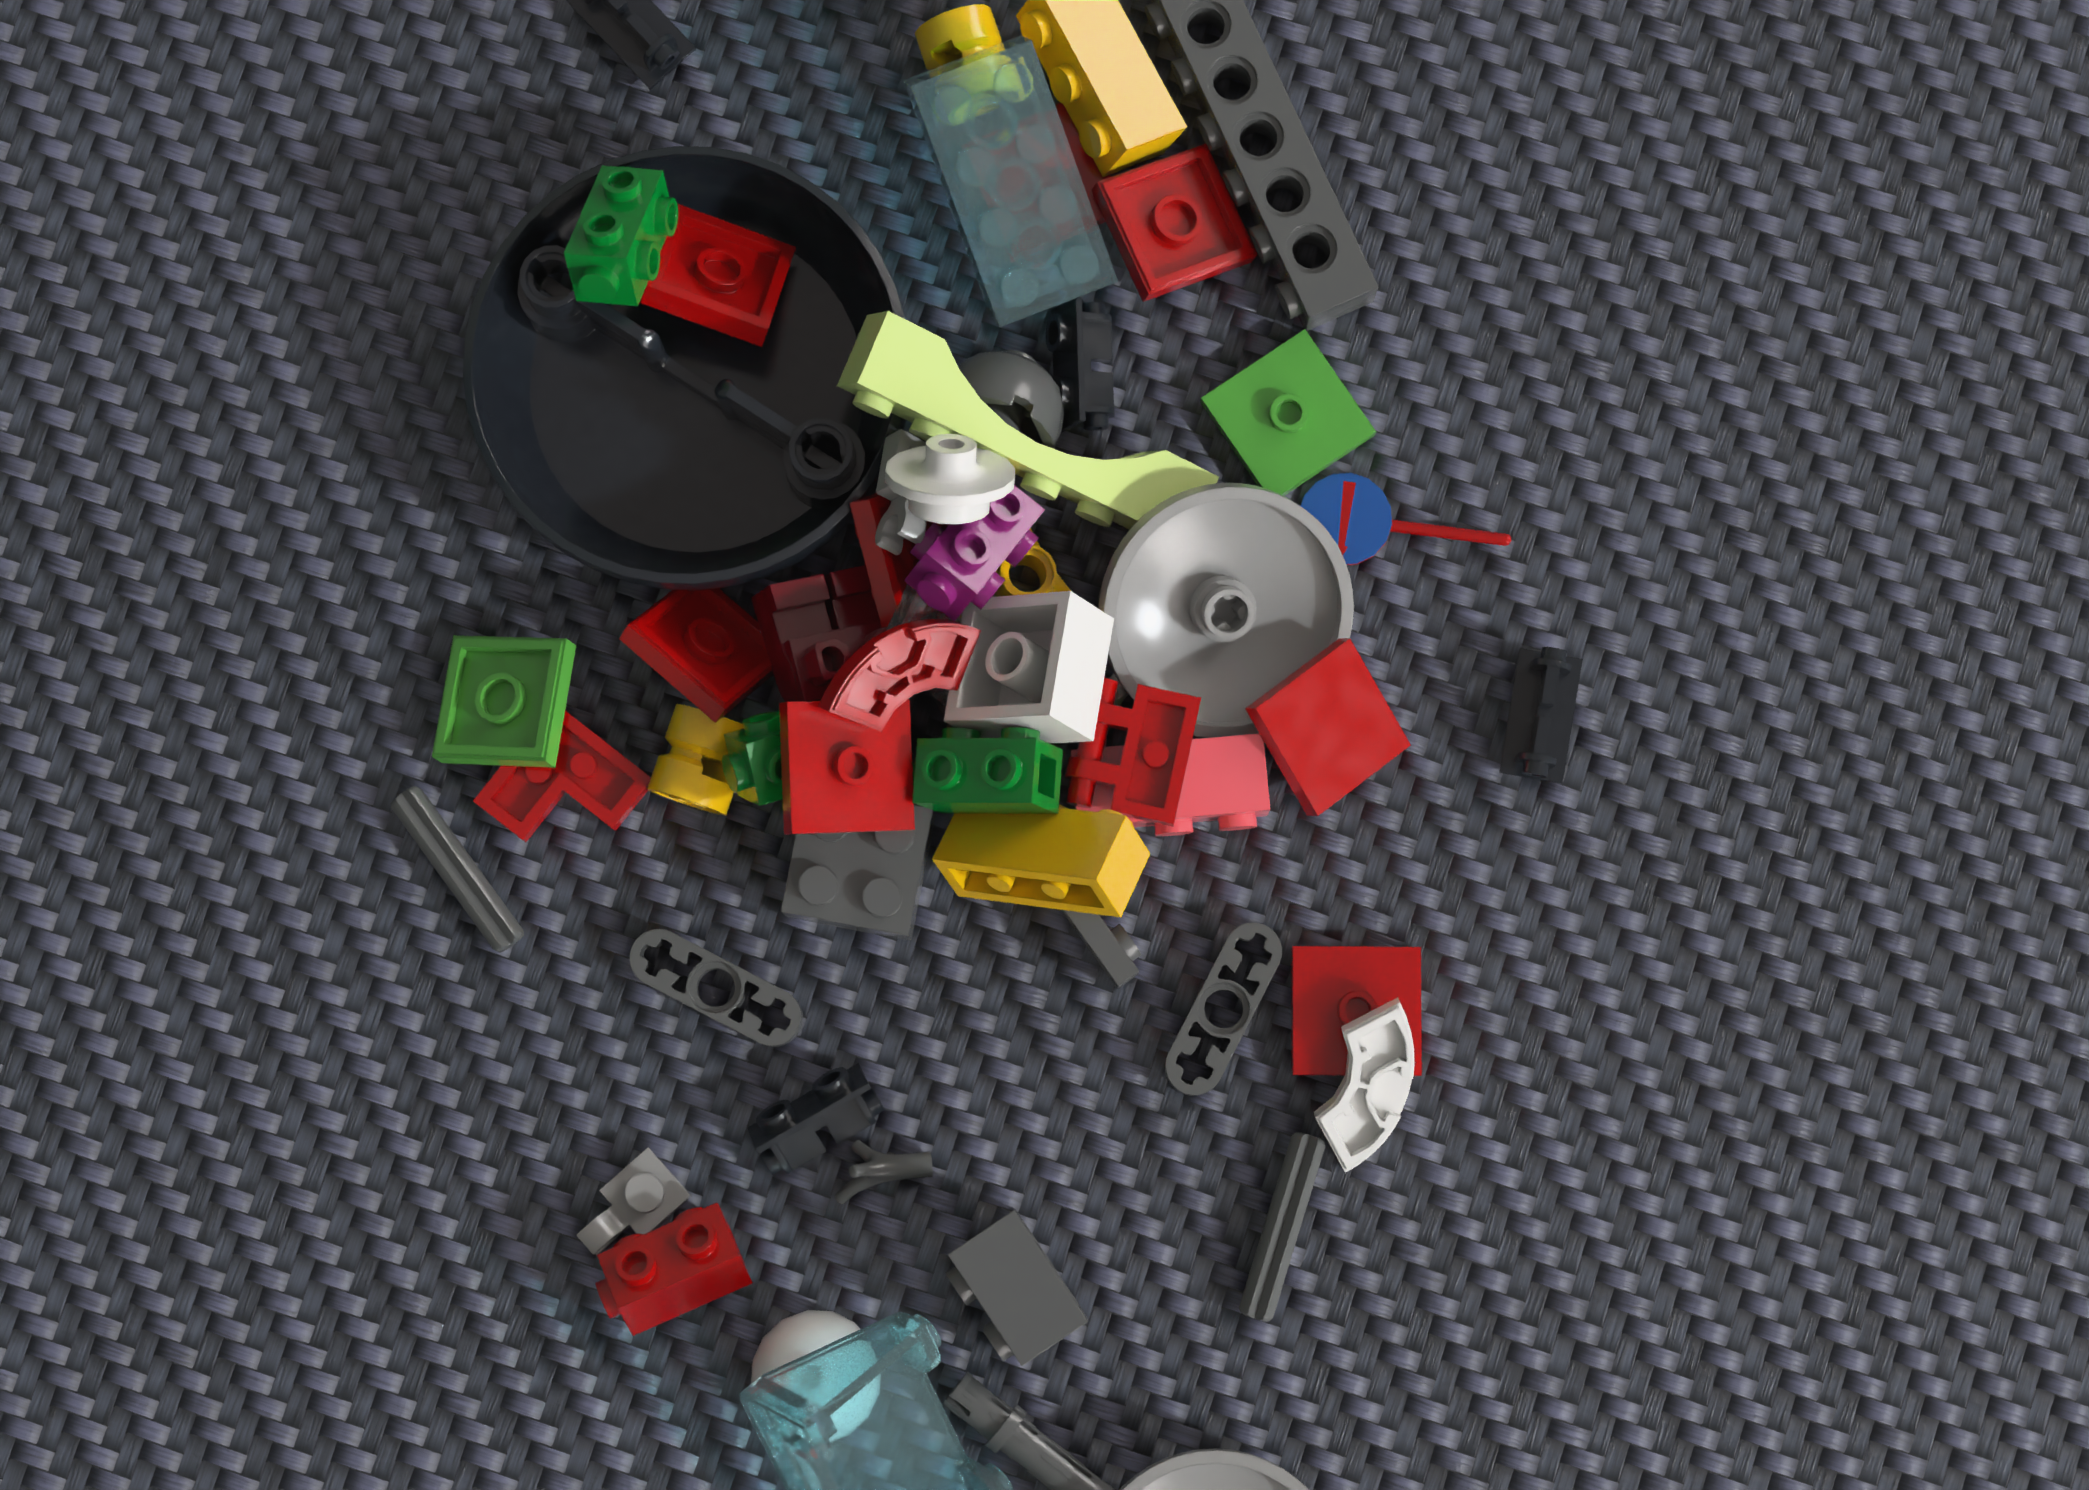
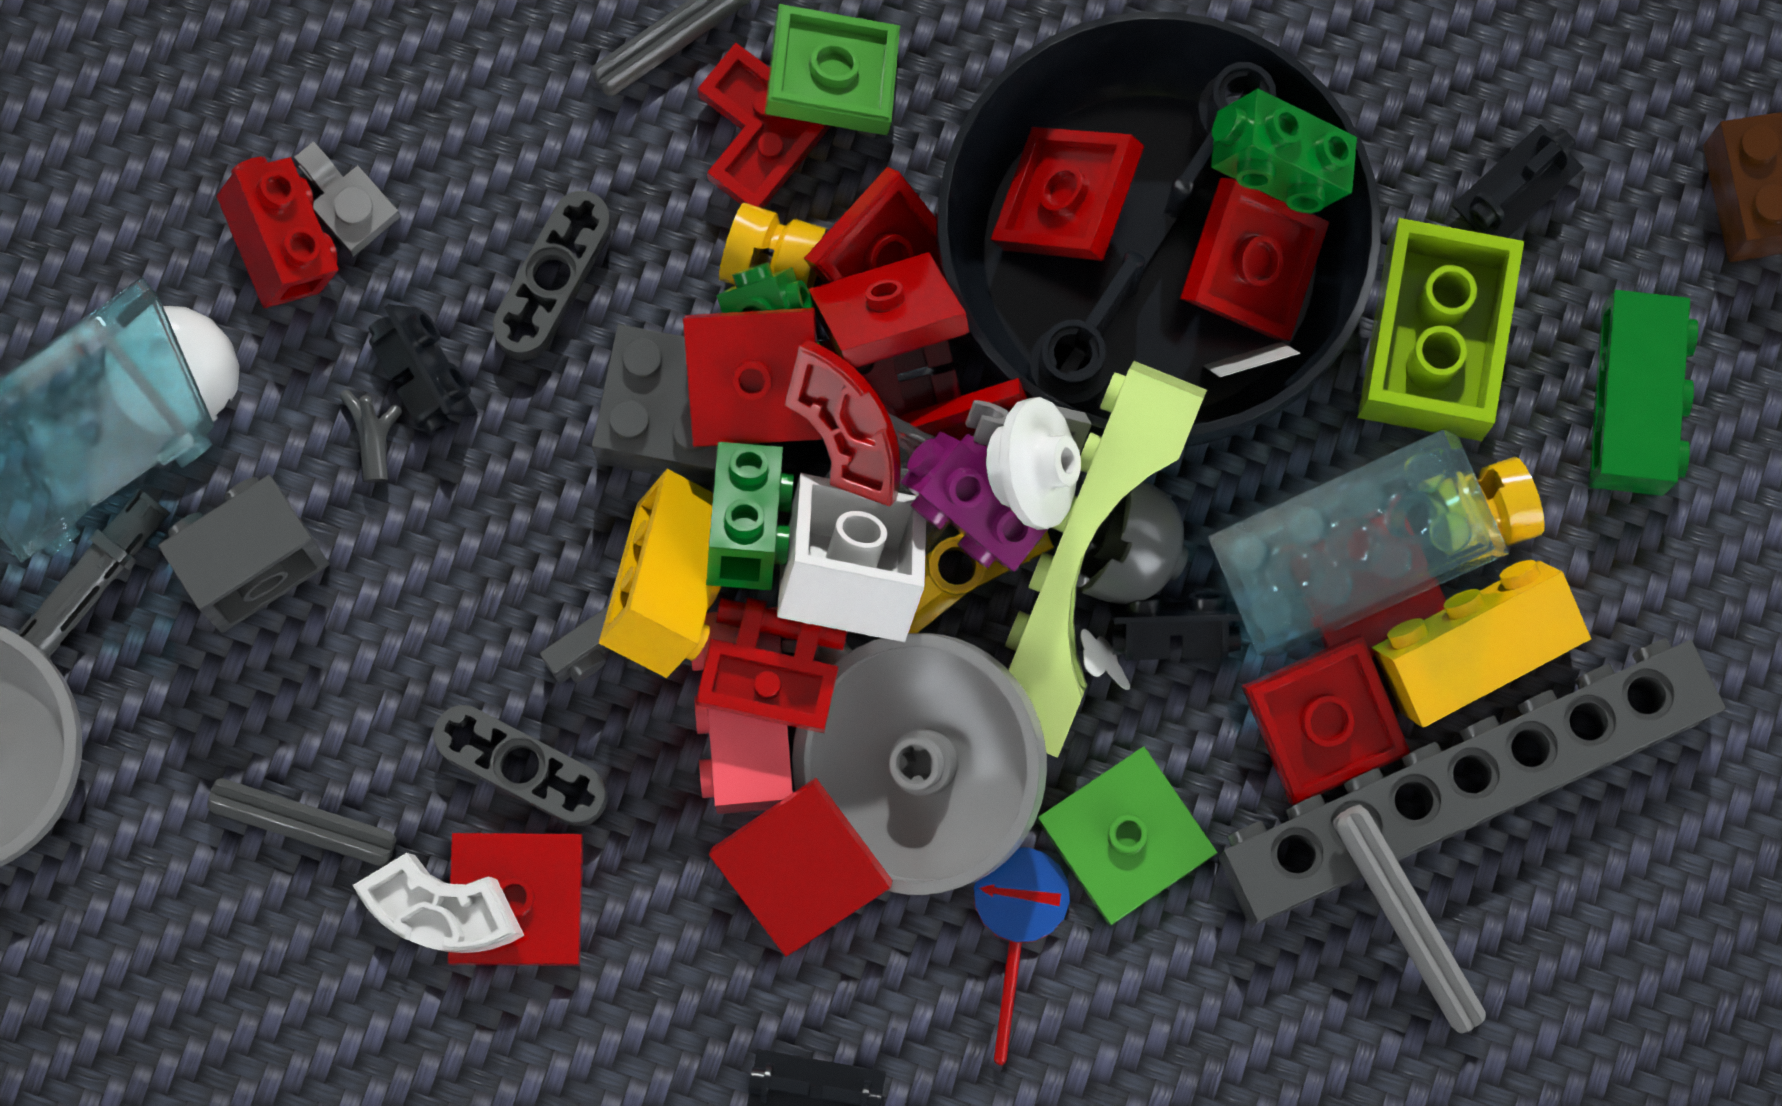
camera: 85 degrees right, 5 degrees down
(646, 459) = (1067, 193): none -> red plate
(777, 632) = (889, 310): none -> red plate
(787, 97) = (1441, 329): none -> lime brick
(820, 281) = (1251, 359): none -> white sticker
(1115, 437) = (1099, 658): none -> white sticker
(1372, 145) = (1409, 918): none -> light grey axle

